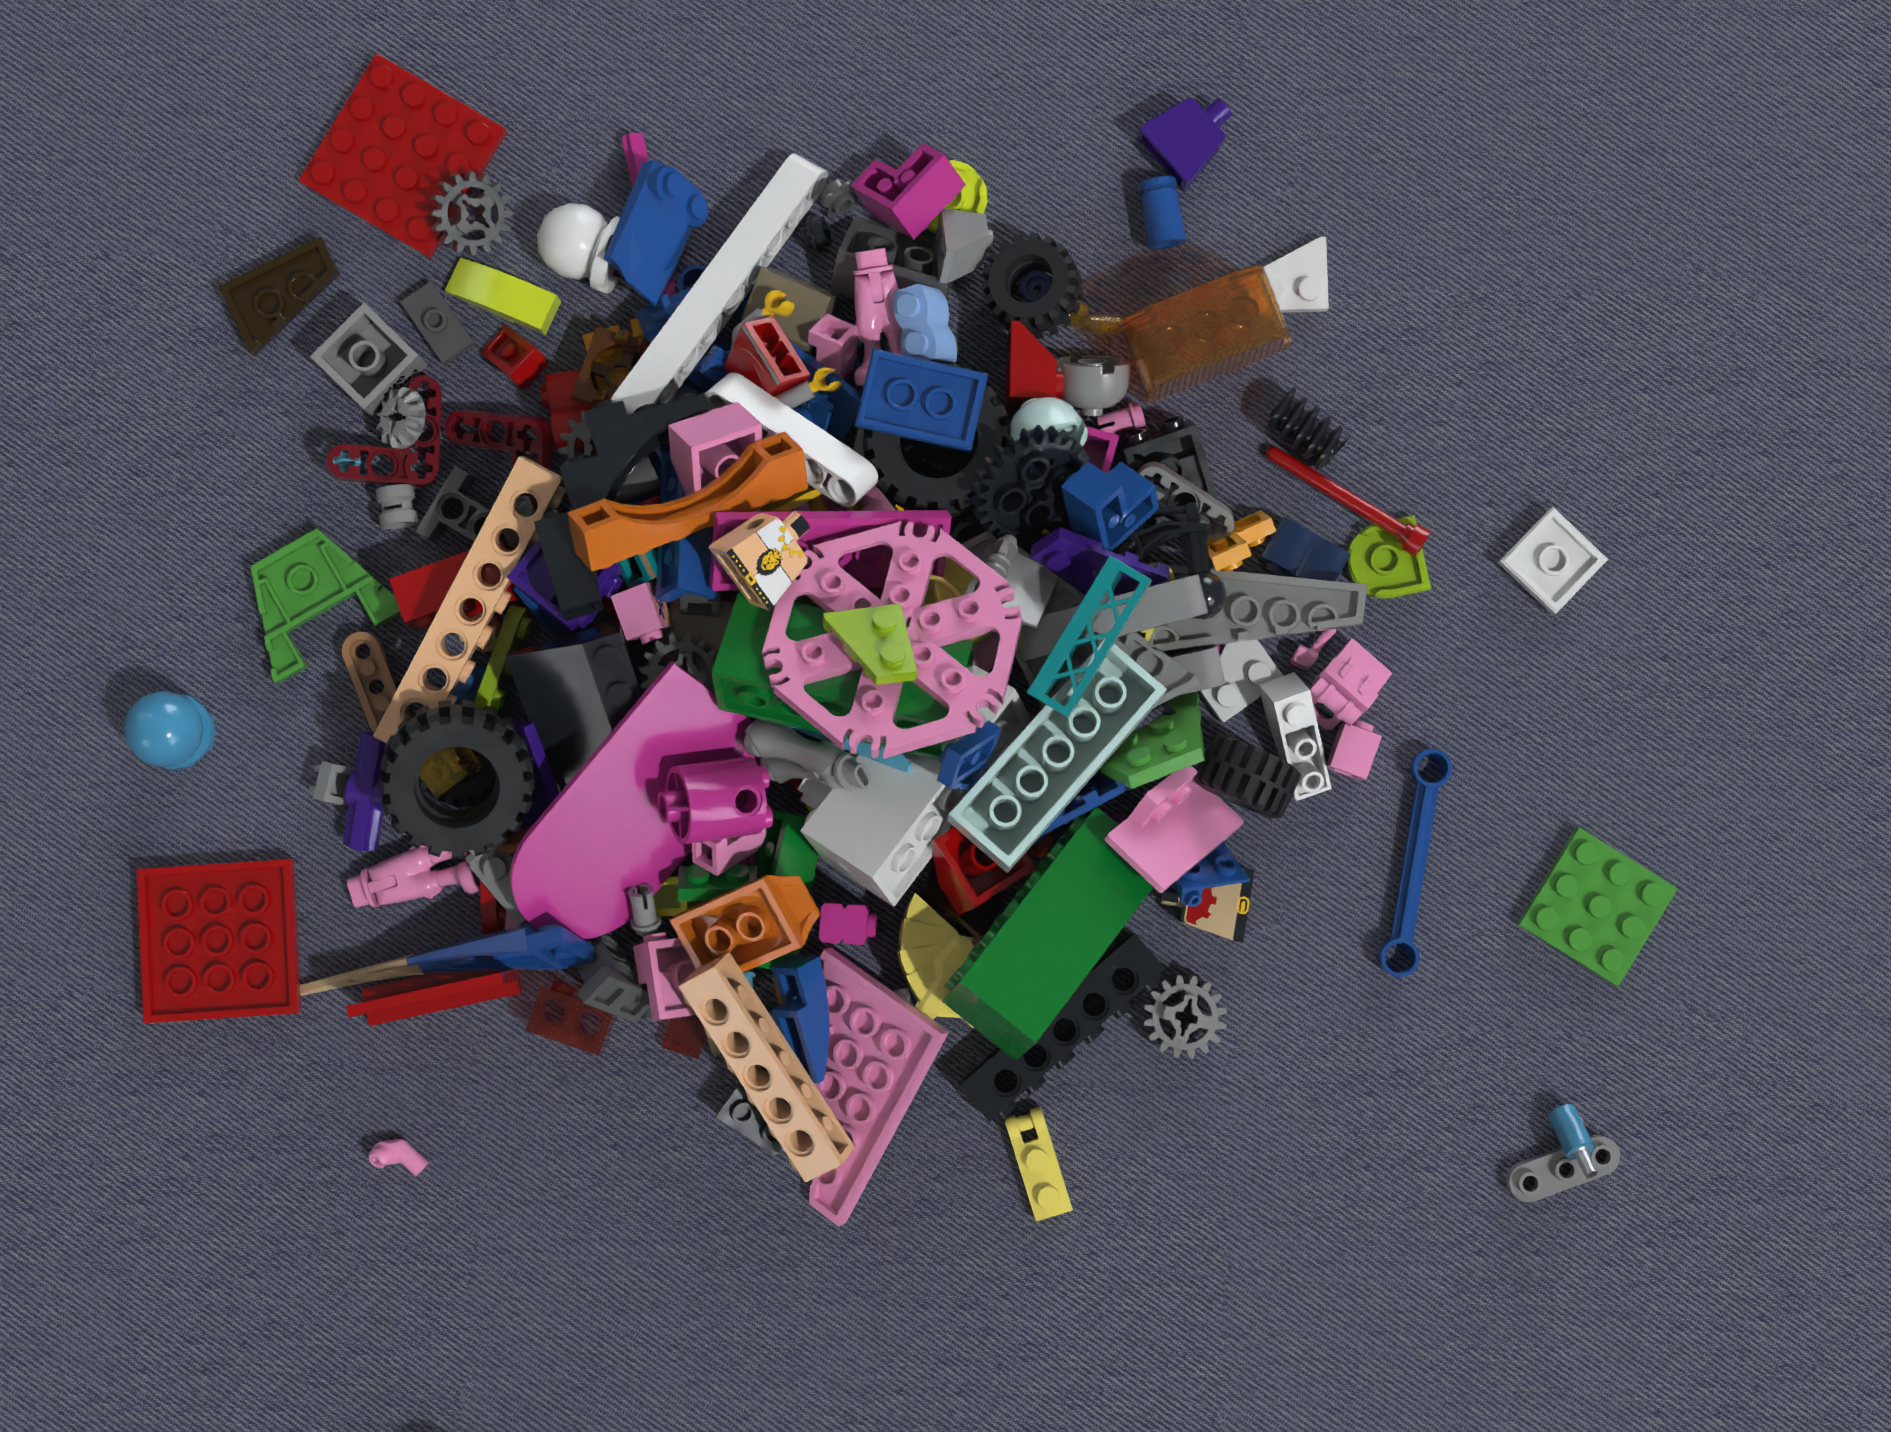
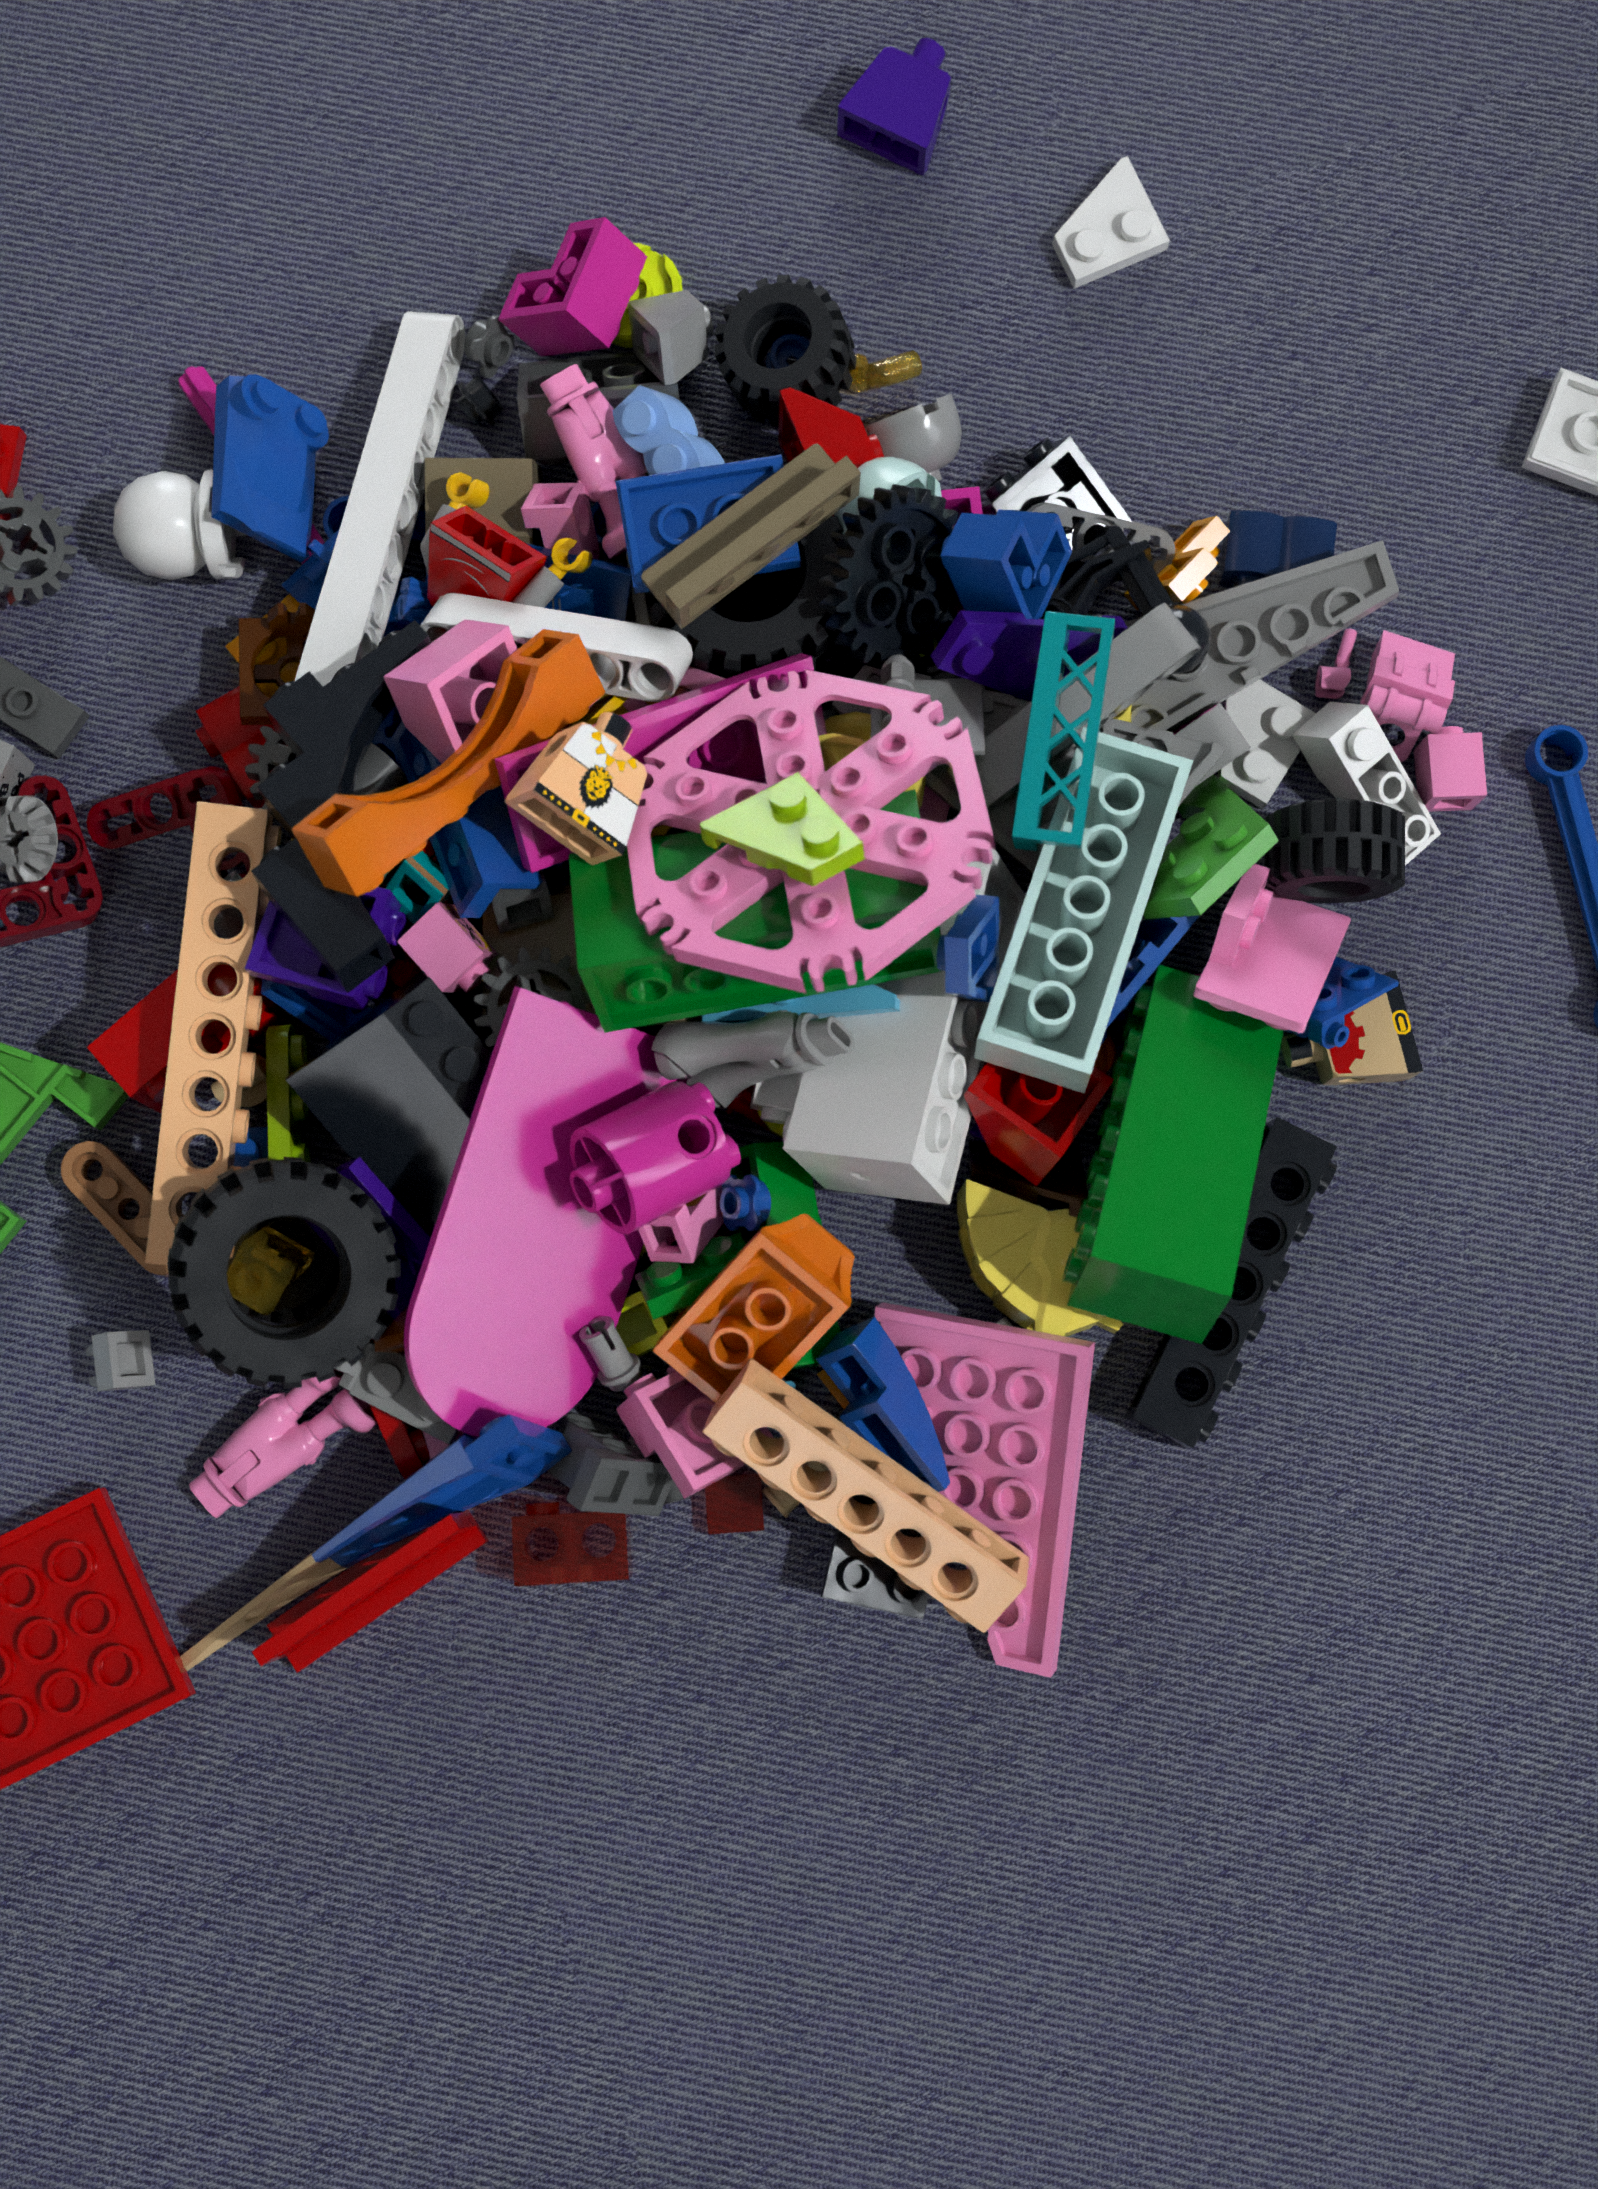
camera: 25 degrees left, 5 degrees down
(363, 796) = (170, 1358): dark purple piece -> none
(395, 1152) = (404, 1831): bright pink arm -> none
(397, 506) = (64, 961): light grey wheel -> none
(454, 491) = (132, 911): dark grey tile -> none
(503, 295) = (102, 635): neon yellow slope -> none
(515, 357) = (149, 708): red slope -> none
(767, 850) = (745, 1202): none -> blue plate
(849, 923) = (892, 1260): dark pink brick -> none
(944, 421) = (751, 533): none -> dark tan panel
(1038, 1165) = (1279, 1482): light yellow plate -> none
(1124, 419) = (977, 471): bright pink pin -> none
(1162, 212) = (910, 204): blue piece -> none
(1181, 1035) = (1392, 1223): light grey gear -> none
(1205, 332) = (1030, 318): clear orange brick -> none
(1306, 429) = (1210, 394): black piece -> none
(1384, 566) = (1387, 506): lime tile -> none
(1409, 535) = (1401, 472): red piece -> none

